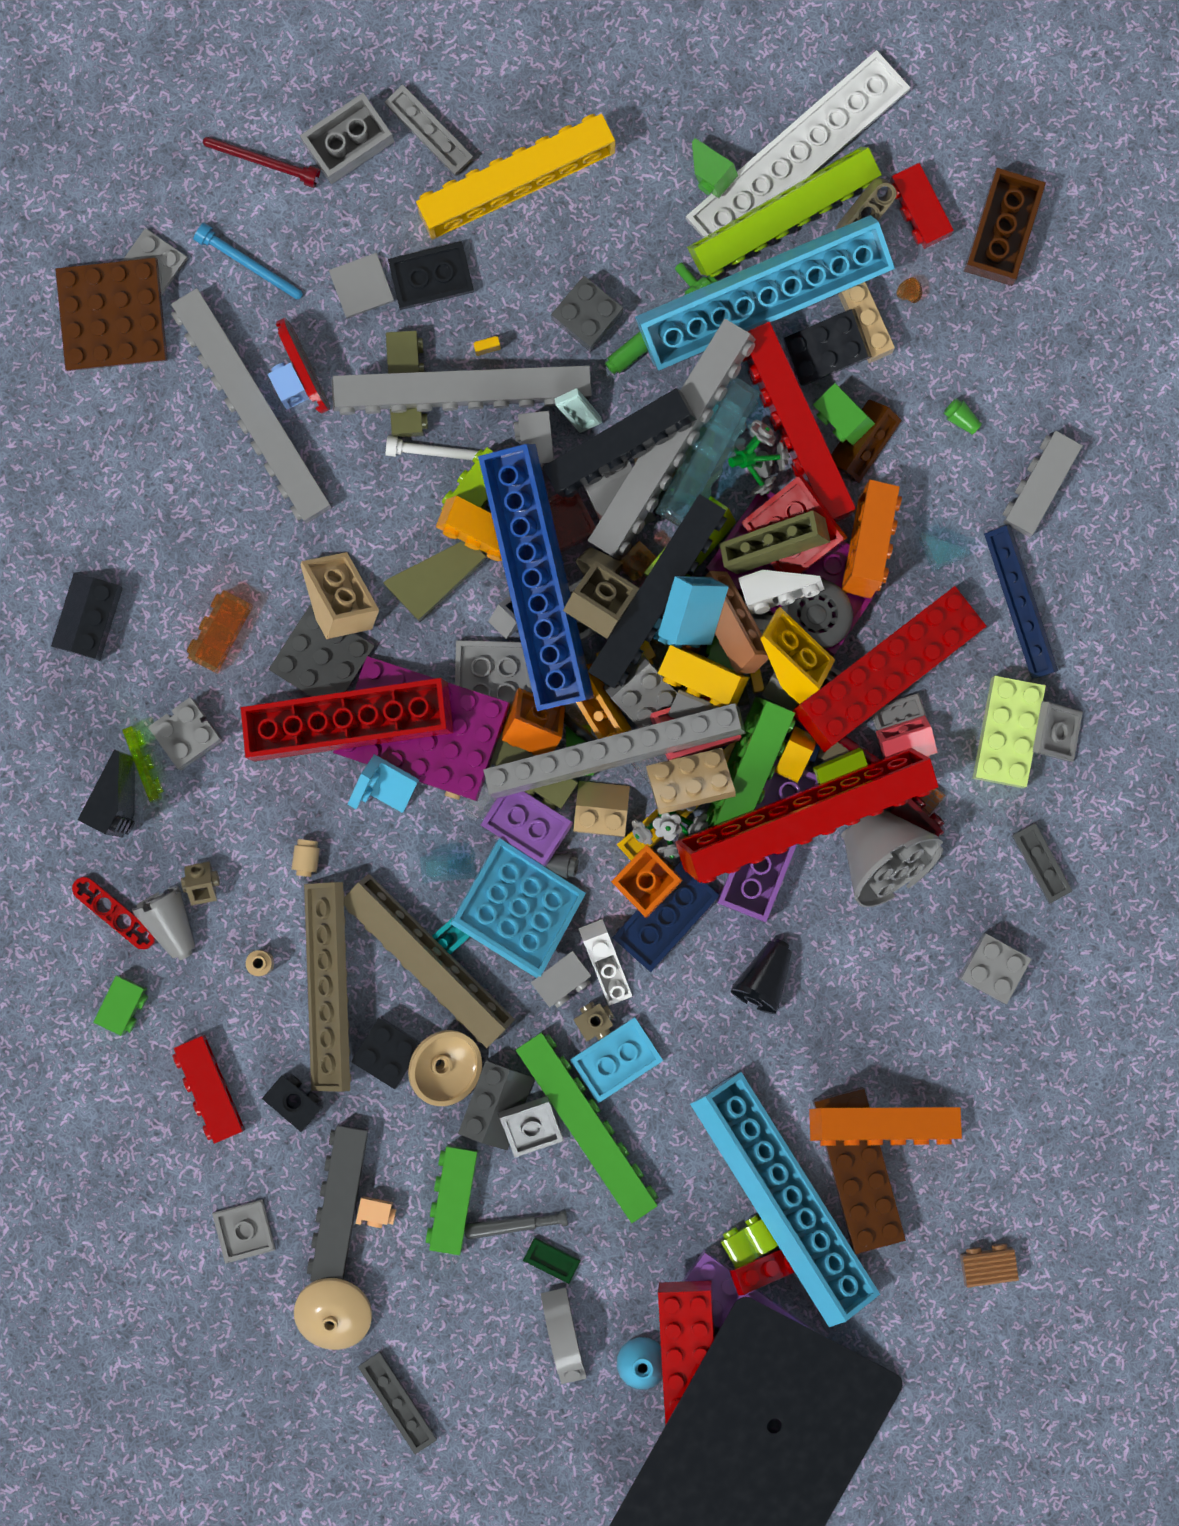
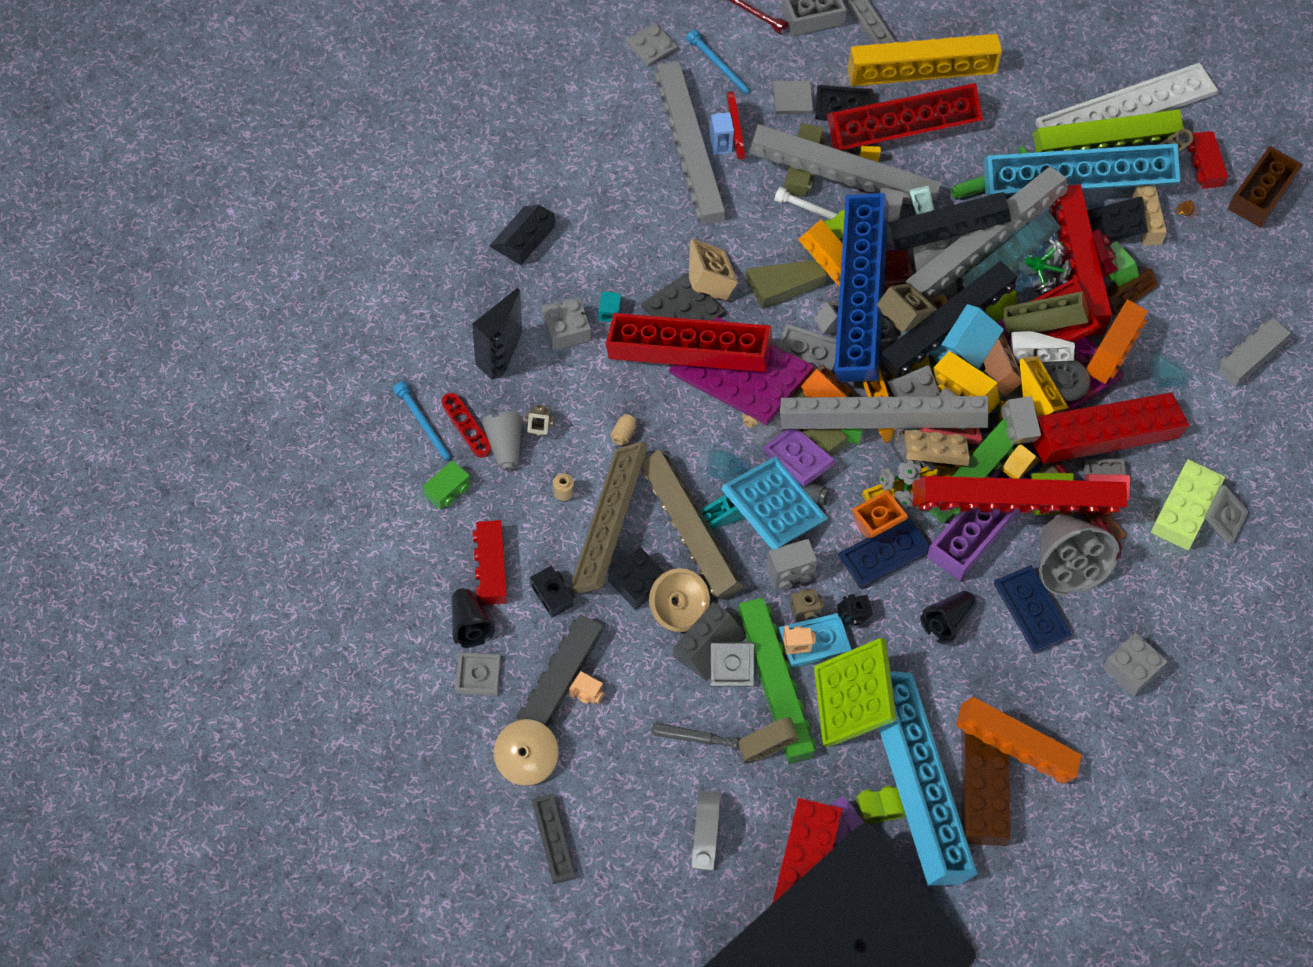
camera: 10 degrees right, 25 degrees down
(22, 894) = (403, 391): none -> dark azure piece
(111, 314) = (612, 62): reddish brown plate -> none
(143, 763) = (527, 334): clear neon green plate -> none
(208, 1171) = (469, 620): none -> black cone
(219, 631) = (615, 268): clear orange brick -> none
(231, 689) = (609, 304): none -> teal brick
(385, 783) = (700, 396): medium azure bracket -> none
(453, 1199) = (651, 699): bright green brick -> none
(516, 279) = (904, 117): none -> red brick
(551, 1260) = (714, 772): dark green tile -> none
(587, 313) = (948, 154): dark grey brick -> none
(599, 1074) = (798, 640): none -> light nougat brick
(601, 809) = (857, 467): tan slope -> none
(601, 1212) = (768, 740): none -> dark tan beam
(605, 962) = (828, 569): white slope -> none
(634, 1353) = (759, 879): medium azure piece -> none
(651, 1009) = (854, 609): none -> black brick
(683, 1125) = (854, 693): none -> lime plate
(712, 169) = (1064, 95): bright green slope -> none
(760, 1272) = (887, 825): red plate -> none
(783, 716) = (1021, 420): none -> light grey brick
(825, 417) = (1105, 253): none -> dark red bracket
(858, 933) = (1032, 609): none -> dark blue plate
(962, 416) = (1204, 294): bright green cone -> none
(989, 1266) = (1073, 886): medium nougat brick -> none
(1021, 602) = (1219, 422): dark blue plate -> none
(1041, 863) = (1191, 604): dark grey plate -> none

